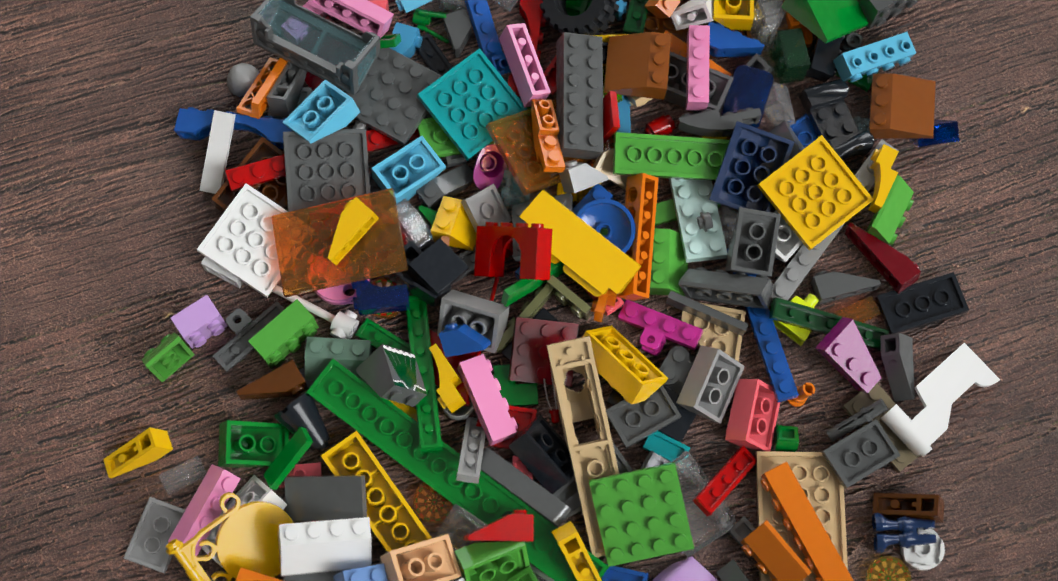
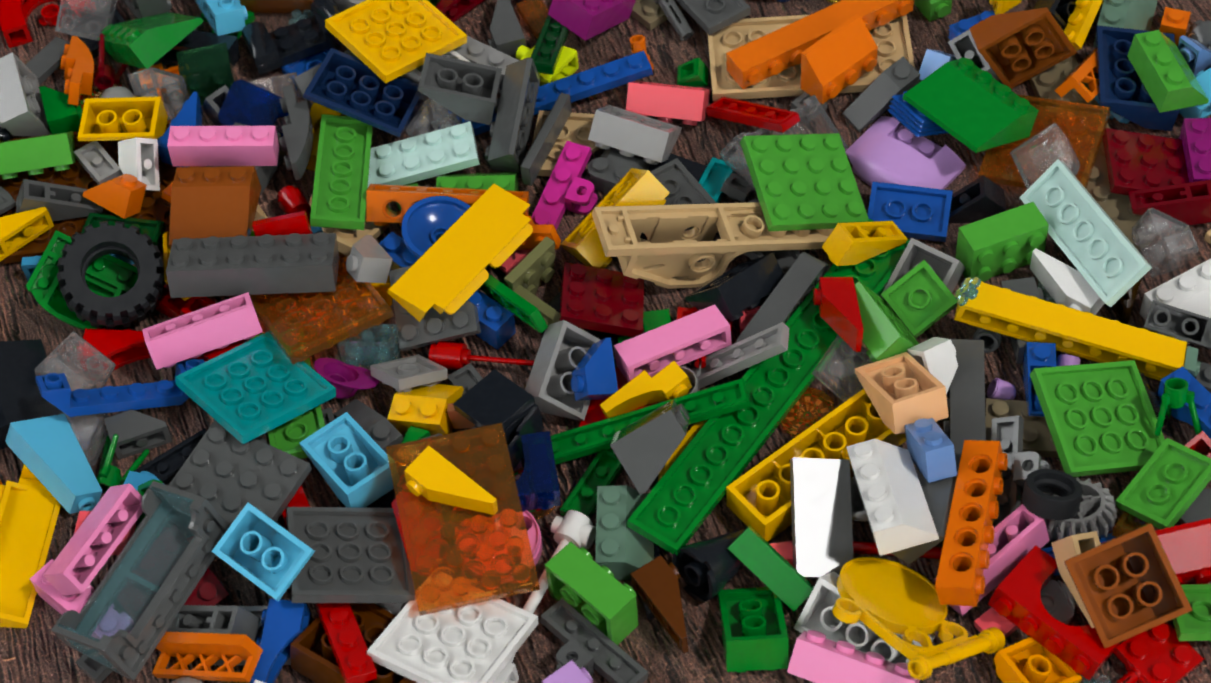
camera: 85 degrees left, 20 degrees down
(534, 245) = (465, 276): red arch -> none
(545, 136) = (303, 297): orange slope -> none
(554, 412) = (677, 292): piece -> none
(705, 221) = (428, 137): dark grey plate -> none

